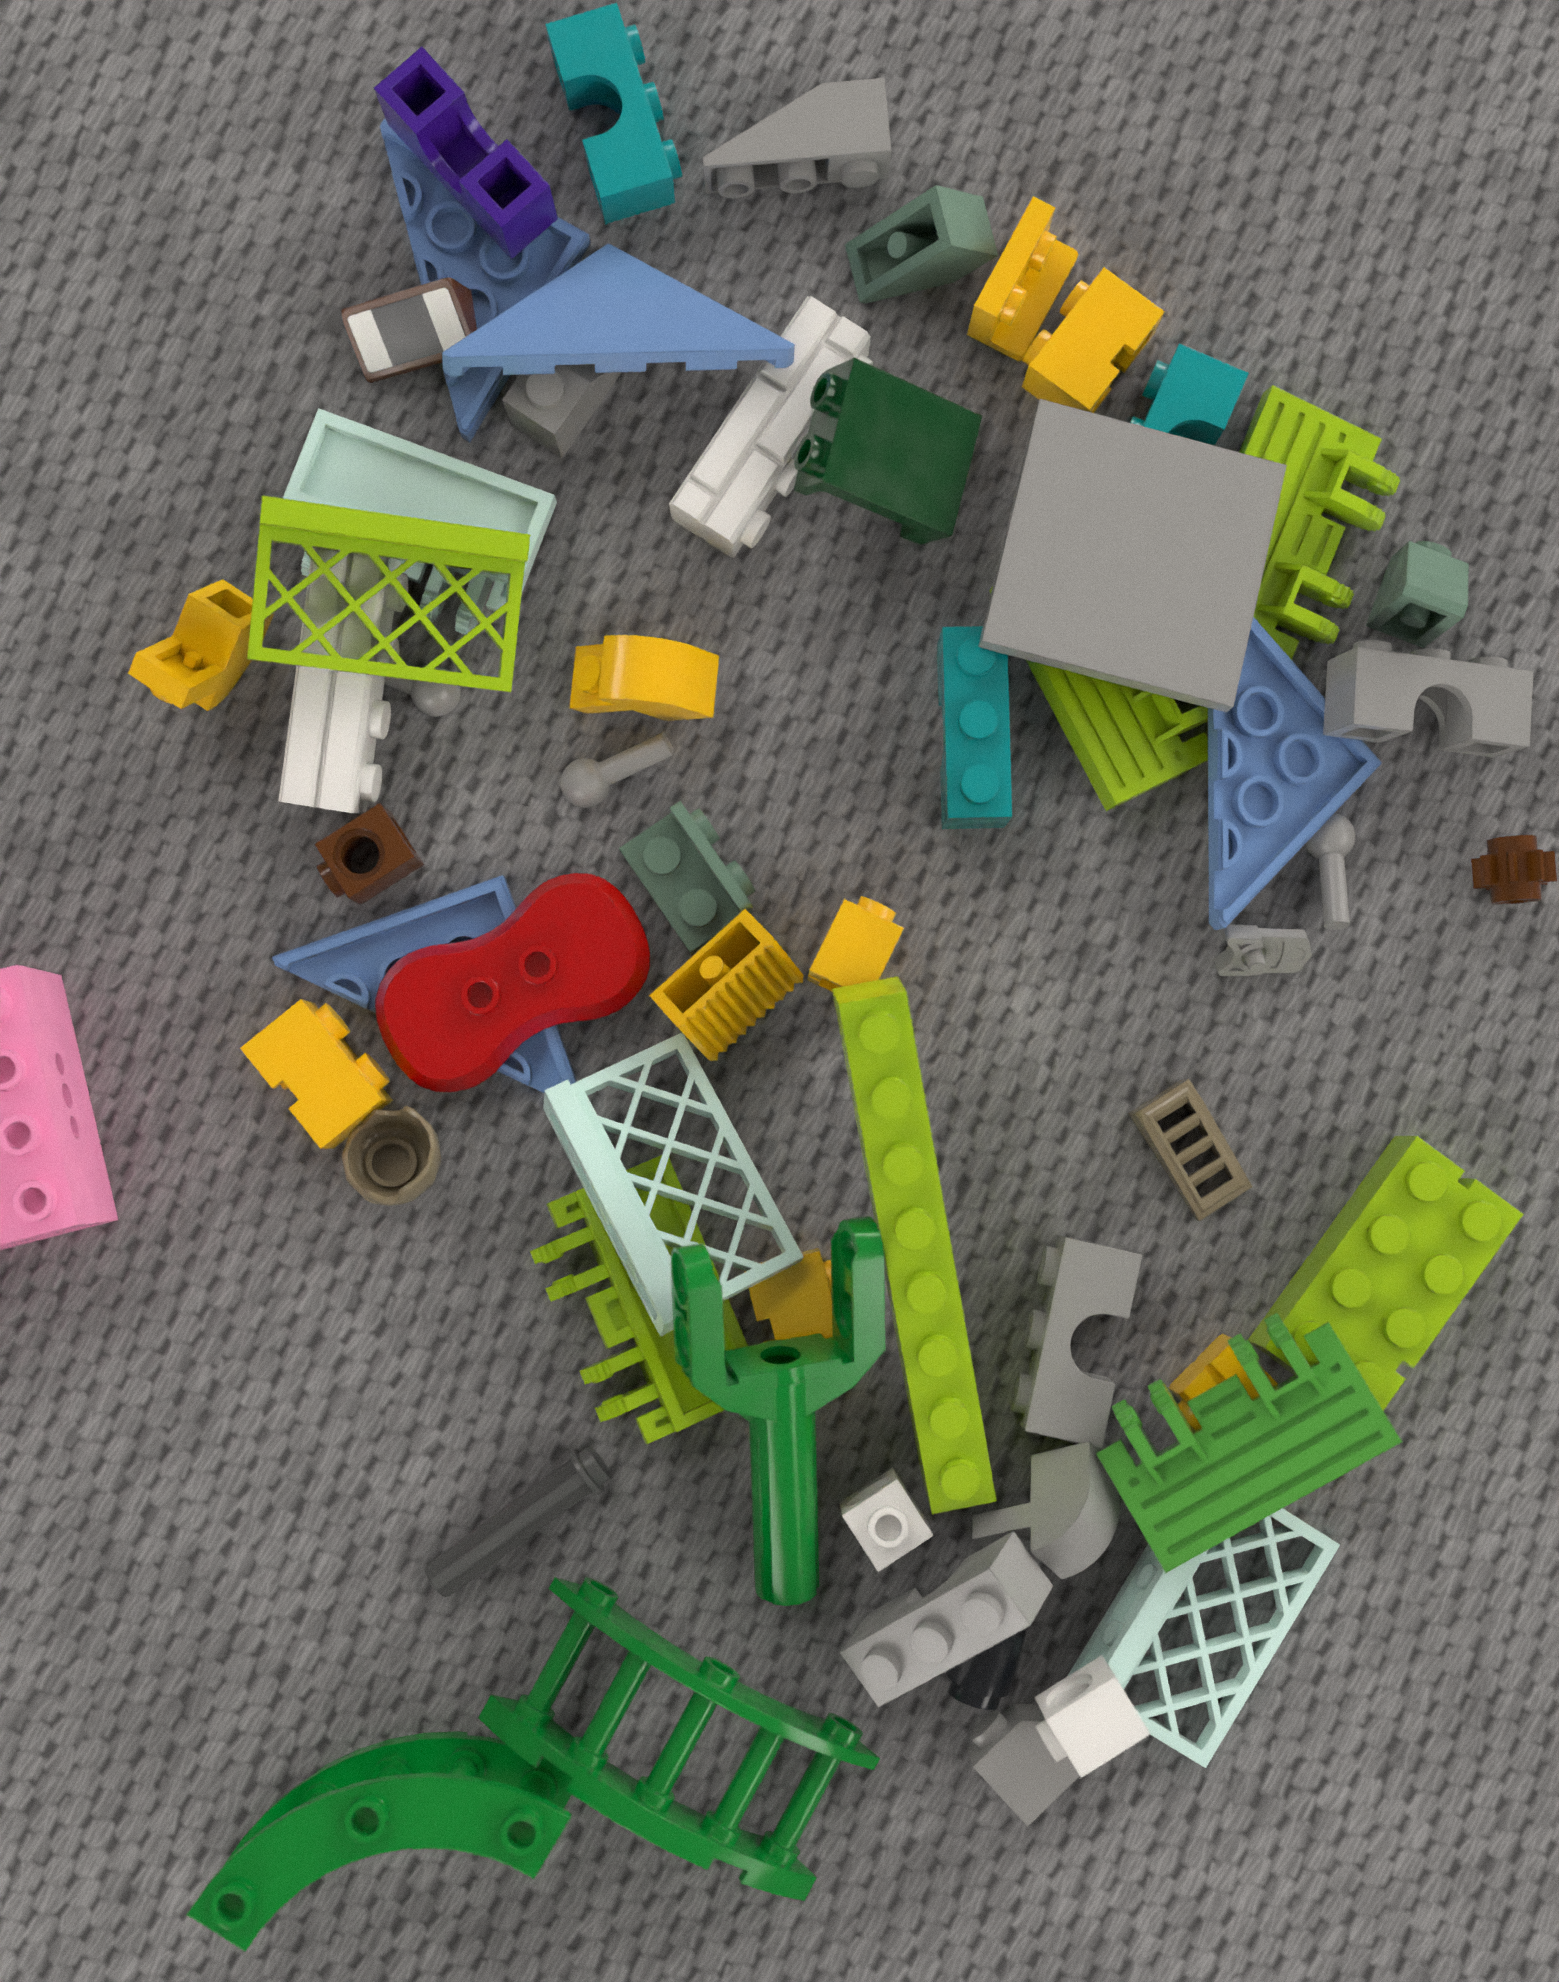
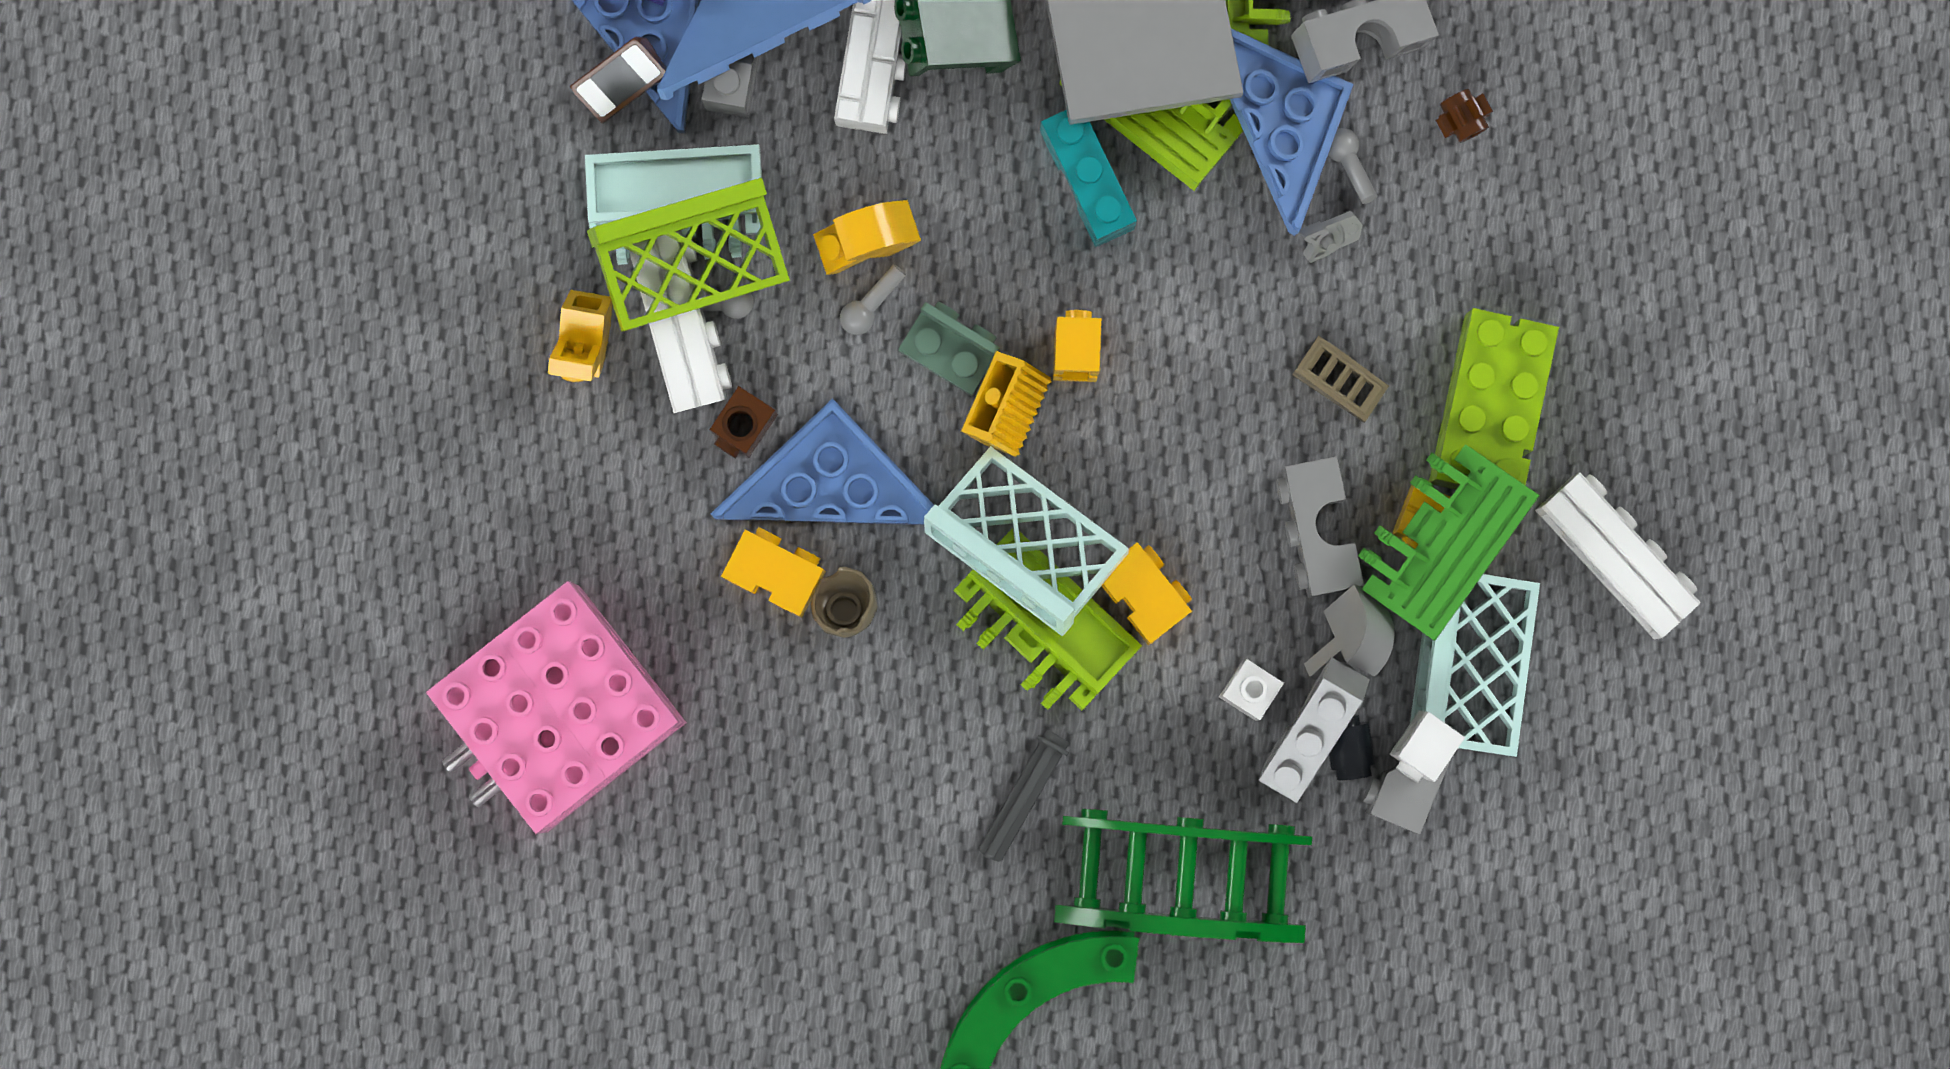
camera: 20 degrees left, 0 degrees up
(469, 1004) = (847, 490): red plate -> none
(779, 1390) = (1152, 634): green piece -> none
(916, 1242) = (1193, 509): lime brick -> none
(1466, 1561) = (1618, 555): none -> white brick

